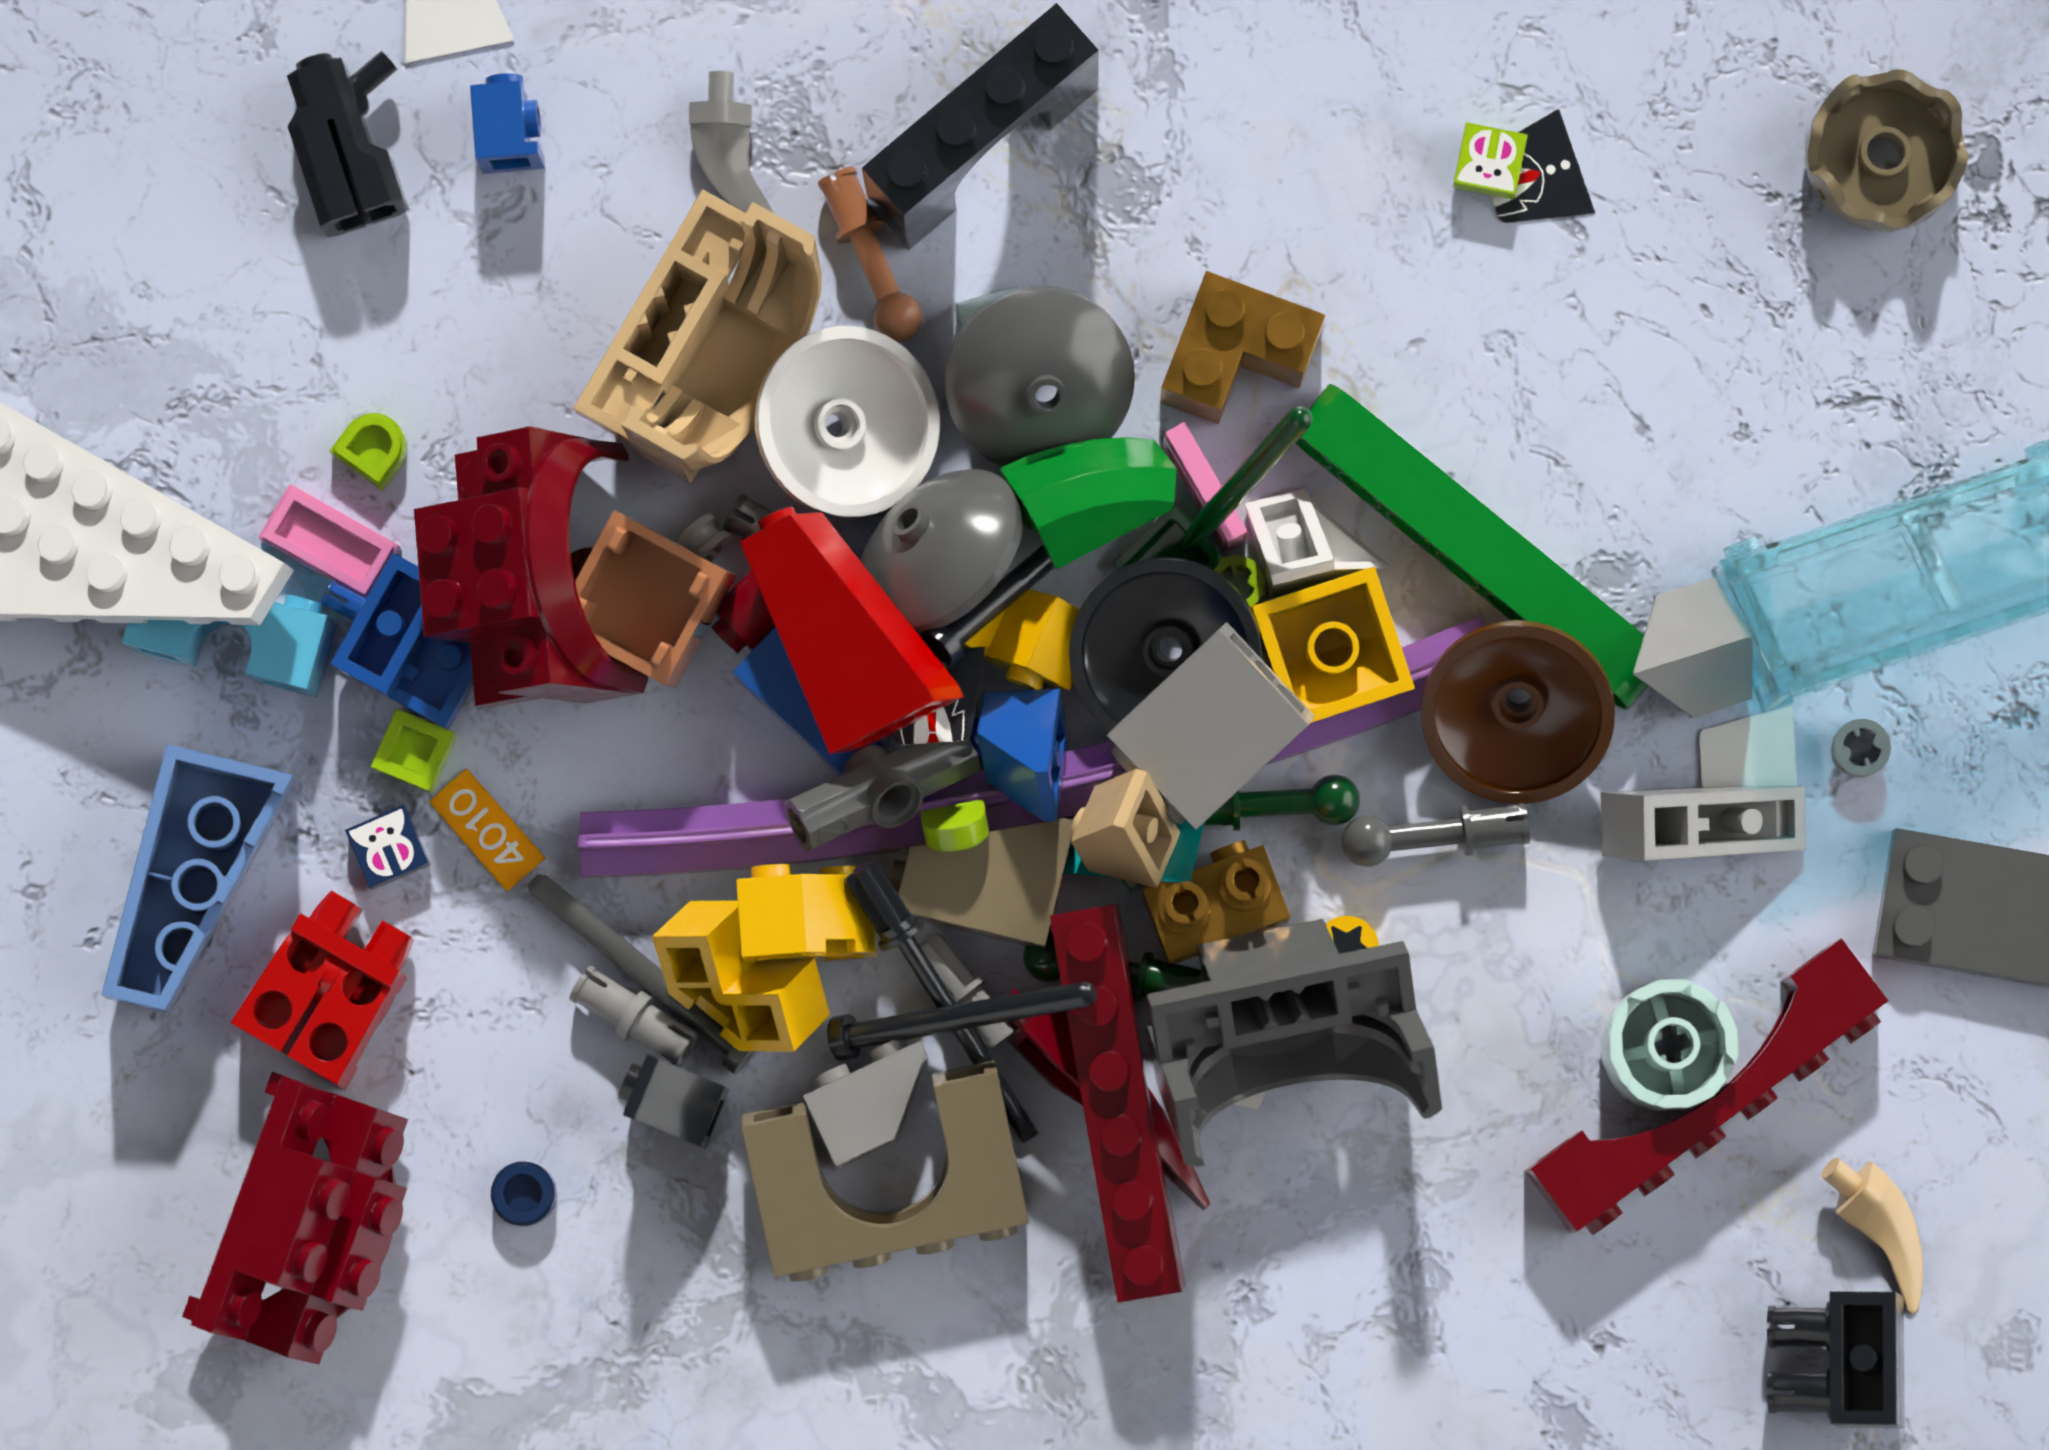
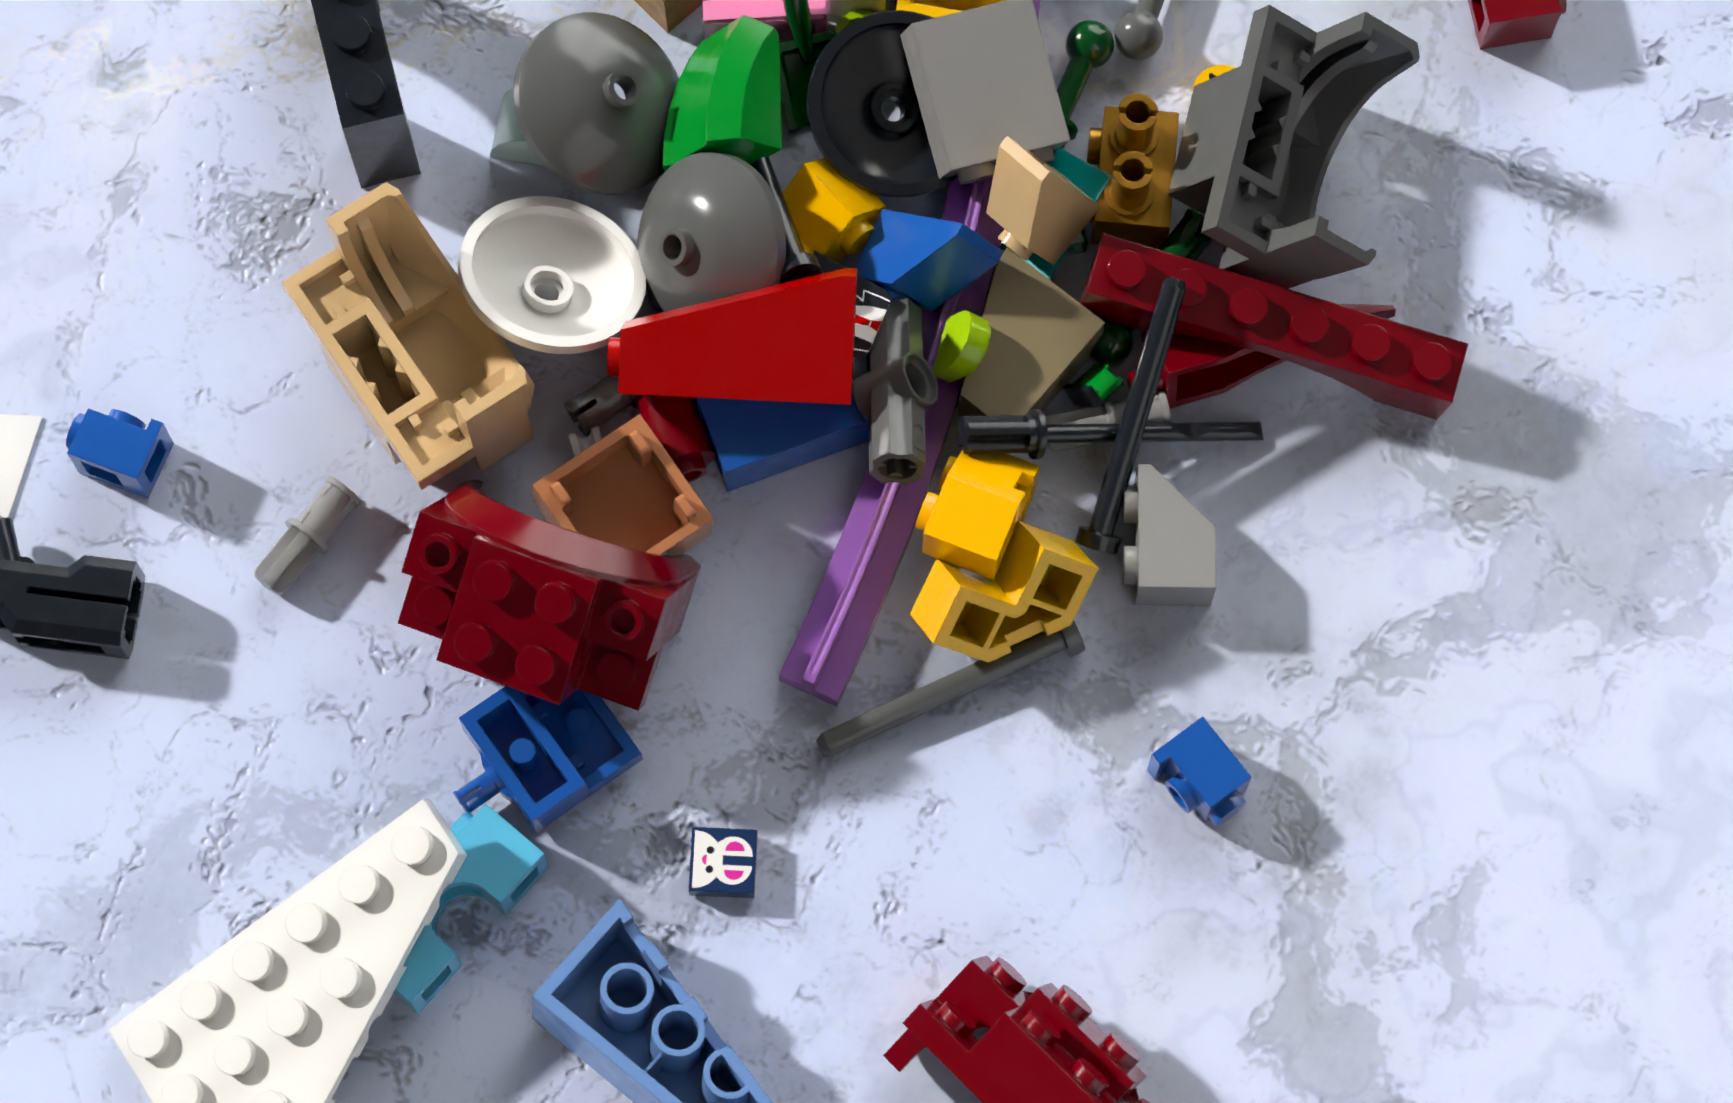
camera: 70 degrees left, 10 degrees down
(324, 992) = (818, 954): red hips -> none
(327, 541) = (424, 771): bright pink tile -> none
(372, 448) = (347, 707): lime tile -> none
(414, 751) = (646, 798): lime tile -> none
(487, 830) = (750, 770): light orange sticker -> none
(507, 331) = (306, 536): none -> light grey axle
(523, 1193) = (1103, 888): dark blue tile -> none
(634, 1016) = (989, 712): light grey pin -> none
(663, 1234) = (1201, 773): none -> blue brick
(672, 1100) = (1086, 705): black slope -> none
(722, 142) = (230, 273): light grey bar -> none
(816, 1228) = (1291, 488): dark tan arch -> none
(895, 312) = (467, 201): nougat pin -> none
(989, 965) = (1093, 386): none -> green piece

